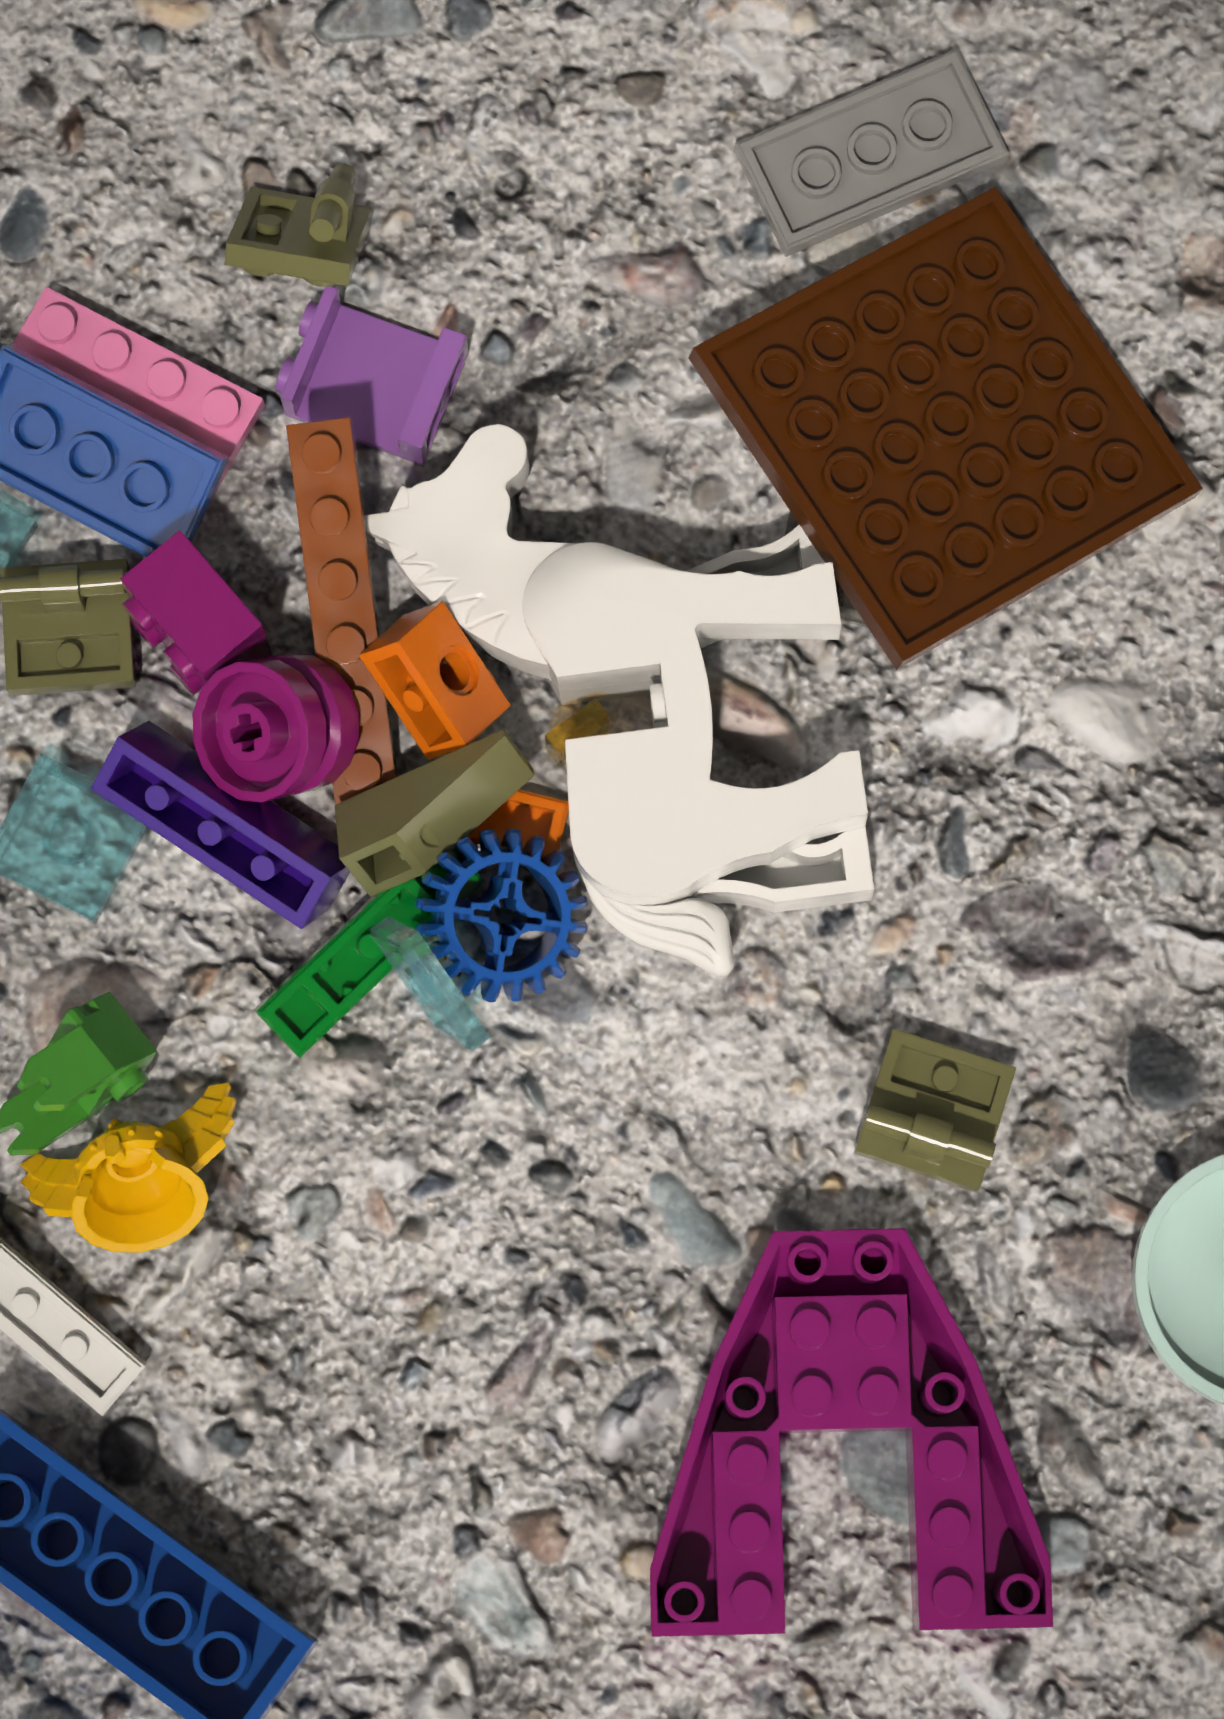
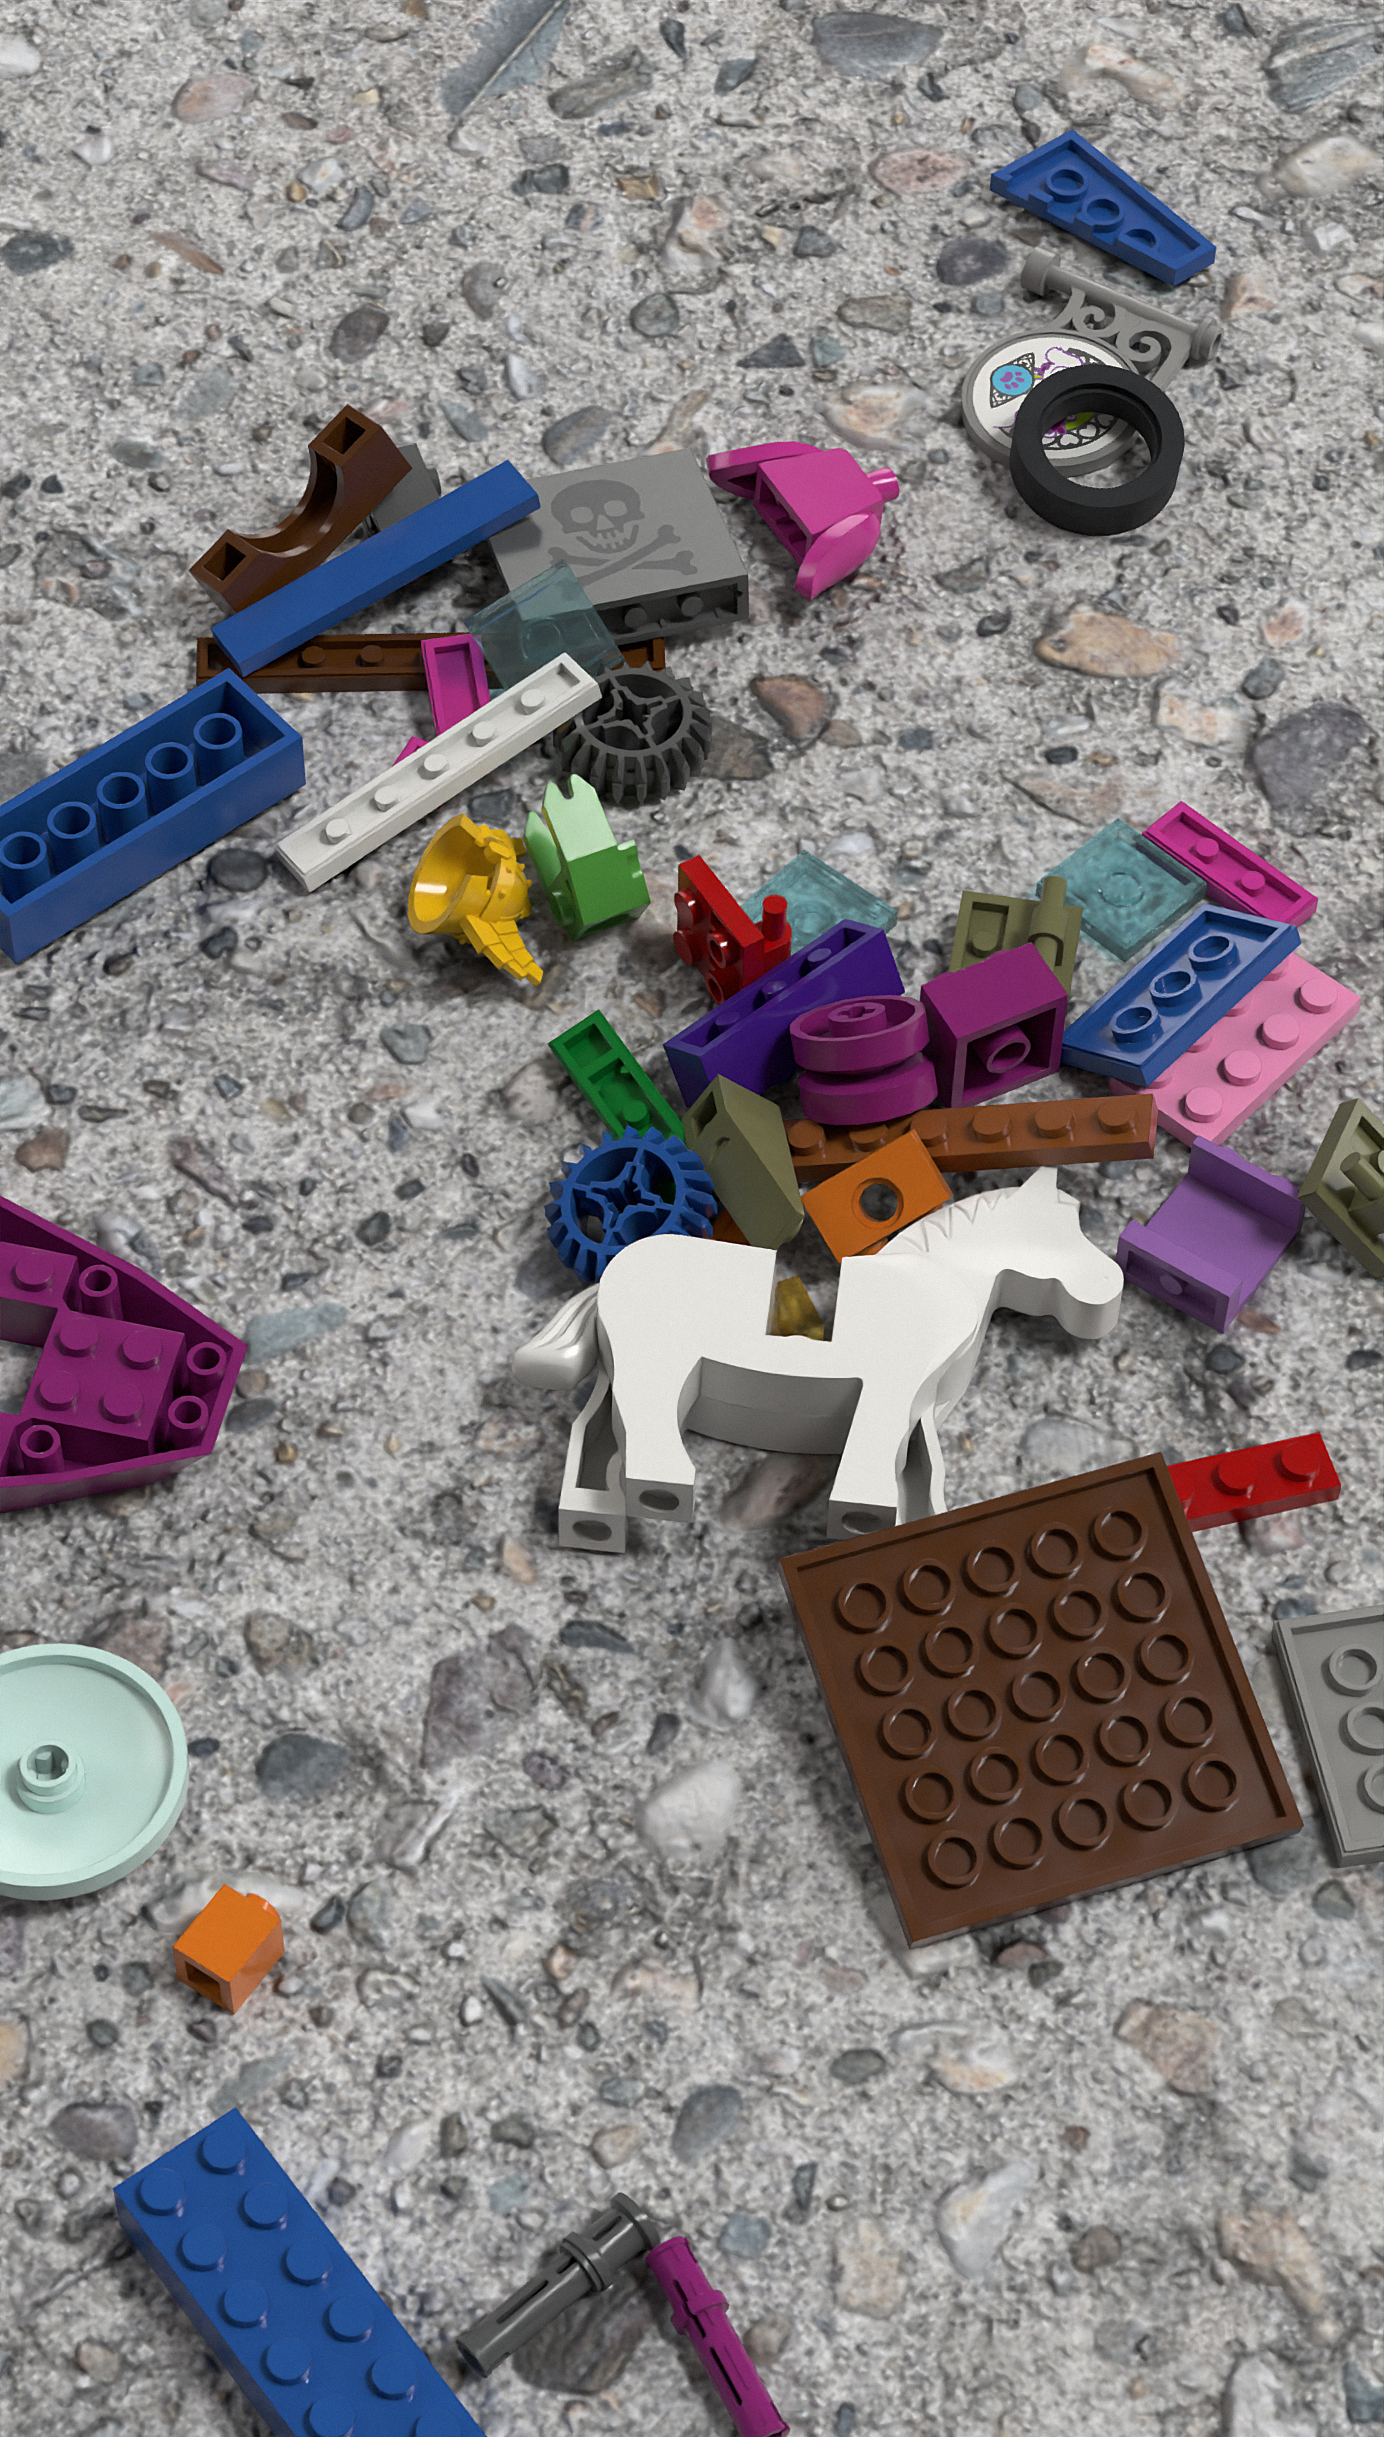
camera: 105 degrees right, 25 degrees down
(165, 888) = (721, 936): none -> red plate
(429, 983) = (574, 1113): clear light blue tile -> none
(641, 307) = (1255, 1481): none -> red plate
(935, 1111) = (325, 1537): olive plate -> none

